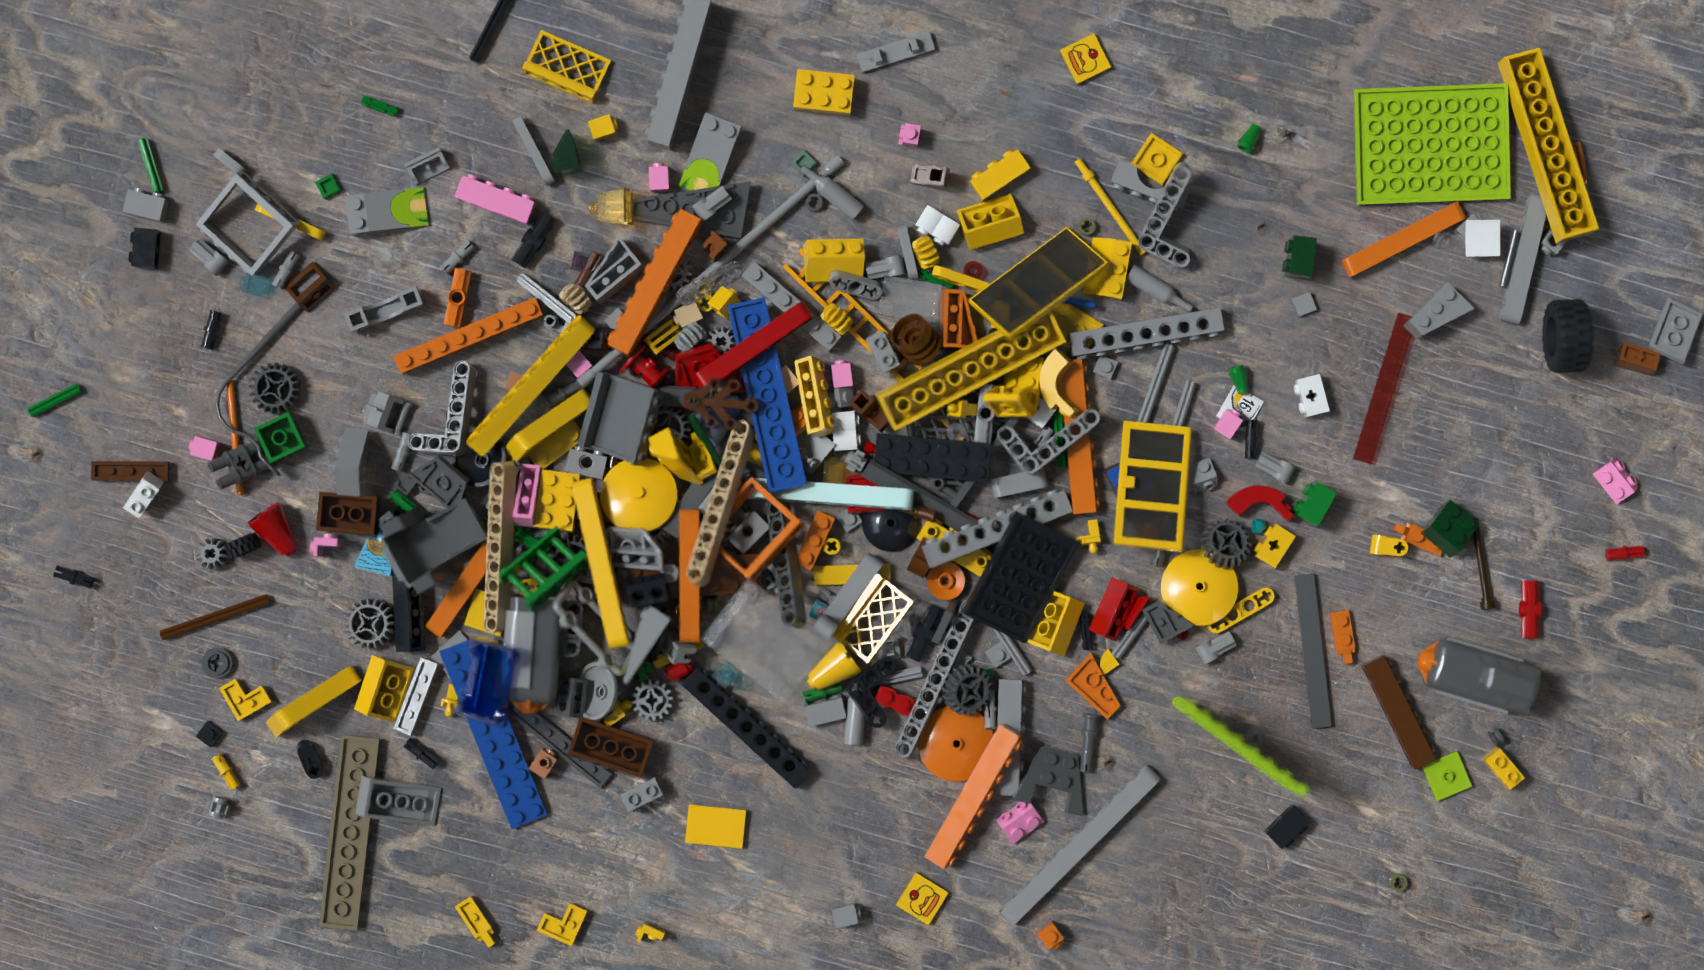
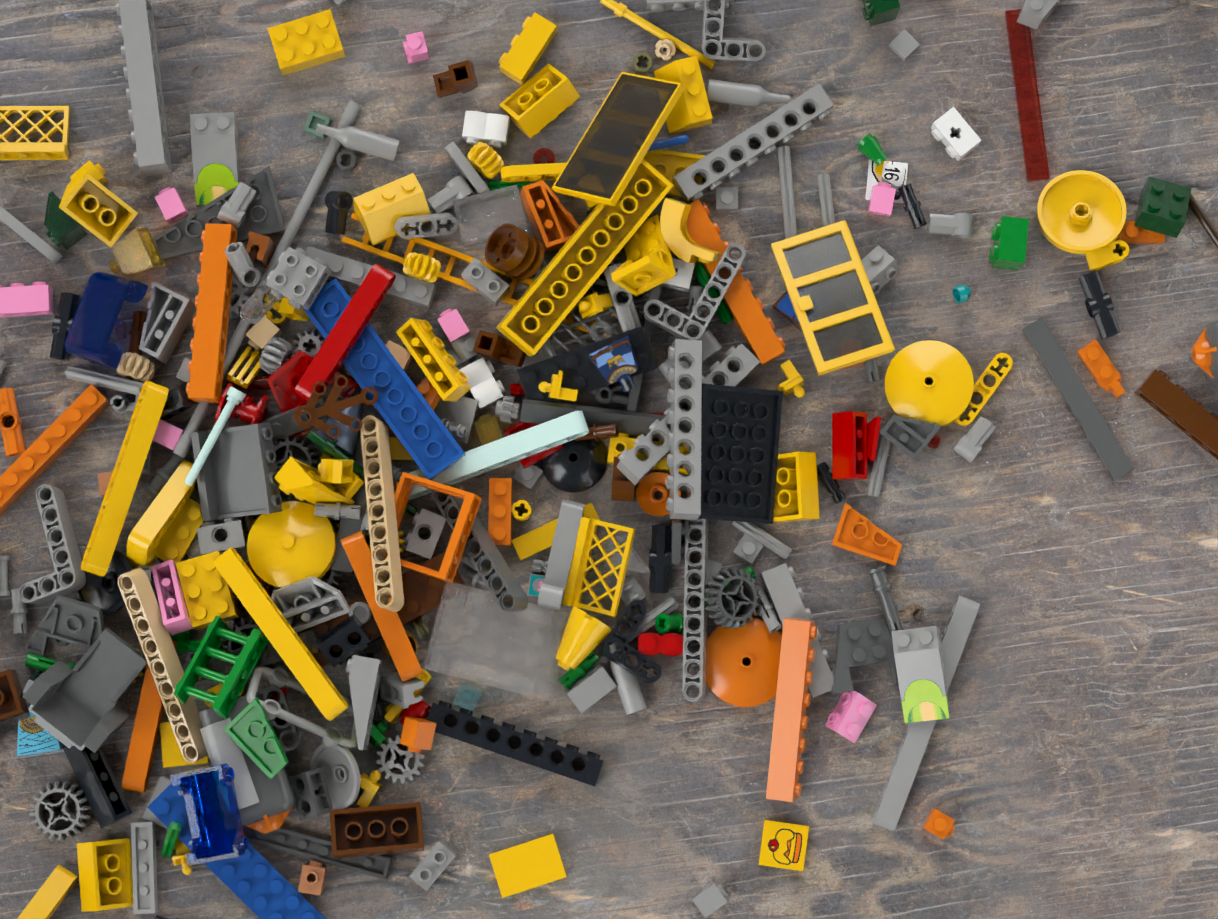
camera: 25 degrees left, 5 degrees down
(447, 685) = (171, 839): none -> green axle
(548, 639) = (257, 738): none -> green wing
(564, 245) = (97, 316): none -> clear blue windscreen
(598, 157) = (96, 208): none -> yellow slope
(643, 359) = (234, 398): none -> light aqua piece
(674, 687) = (417, 734): none -> orange brick
(686, 484) = (337, 510): none -> light grey pin
(695, 255) = (242, 264): none -> light grey piece
(699, 454) = (336, 470): none -> yellow arch
(734, 285) = (297, 278): none -> light grey brick
(789, 241) = (337, 212): none -> black piece
(900, 464) = (555, 389): none -> yellow piece
(913, 688) = (669, 623): none -> green bush
(958, 465) = (617, 363): none -> torso
(1020, 482) = (691, 353): none -> light grey brick
(1088, 814) = (921, 674): none -> light grey slope
(1107, 662) = (868, 505): yellow tile -> none
(1113, 221) = (669, 45): none -> tan plate
(1214, 531) = (948, 331): dark grey gear -> none
(1238, 745) = (1047, 528): lime plate -> none
(1245, 497) = (947, 259): red arch -> none
(1283, 541) = (994, 296): yellow brick -> none
(1286, 827) = (1136, 596): black brick -> none
(1364, 584) = (1099, 305): none -> black piece
(1383, 503) = (1081, 212): none -> yellow dish

